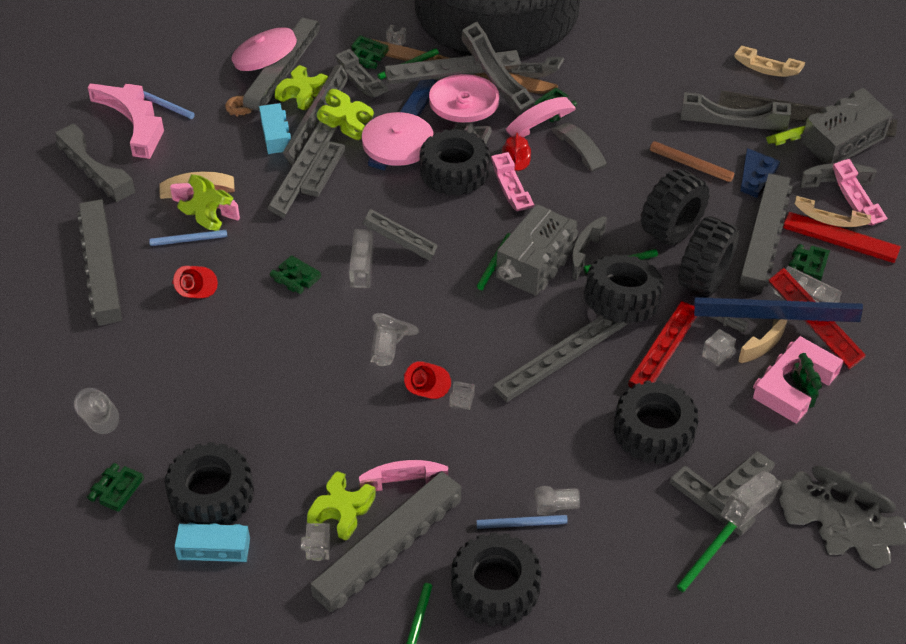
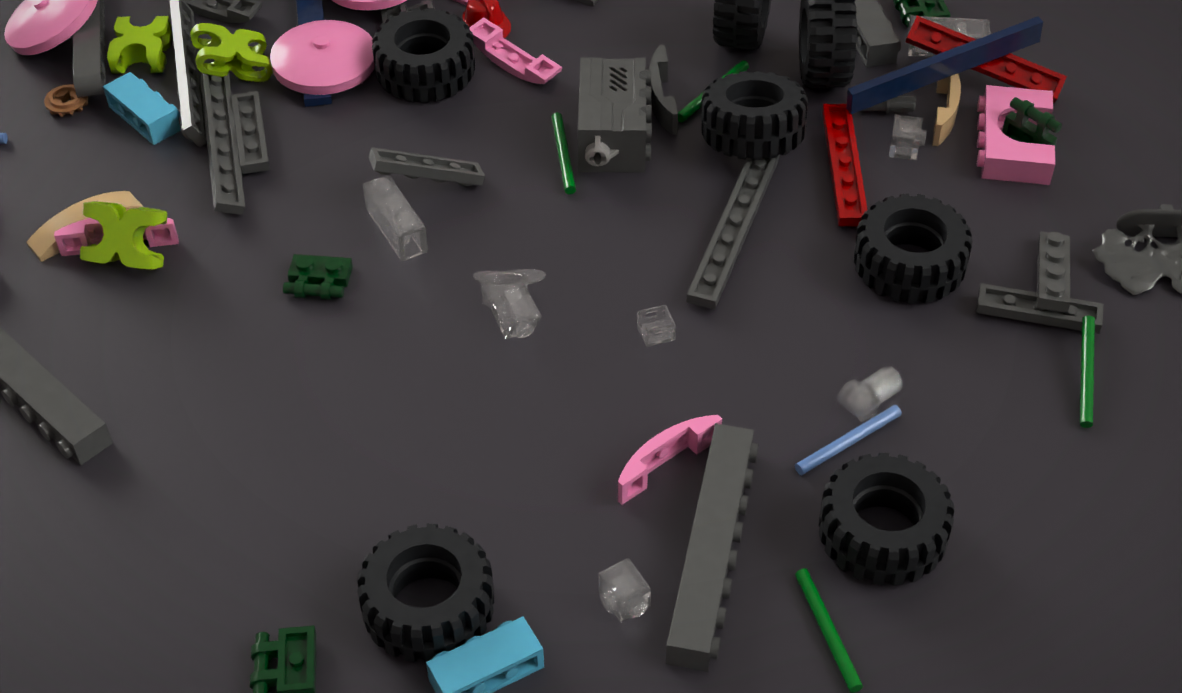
camera: 30 degrees left, 0 degrees up
(96, 410) = (179, 574): clear piece -> none
(188, 237) = (125, 294): medium blue bar -> none
(195, 281) = (186, 344): red piece -> none
(341, 505) = (617, 530): lime piece -> none
(427, 380) = (600, 326): red piece -> none
(751, 498) = (1089, 282): clear brick -> none

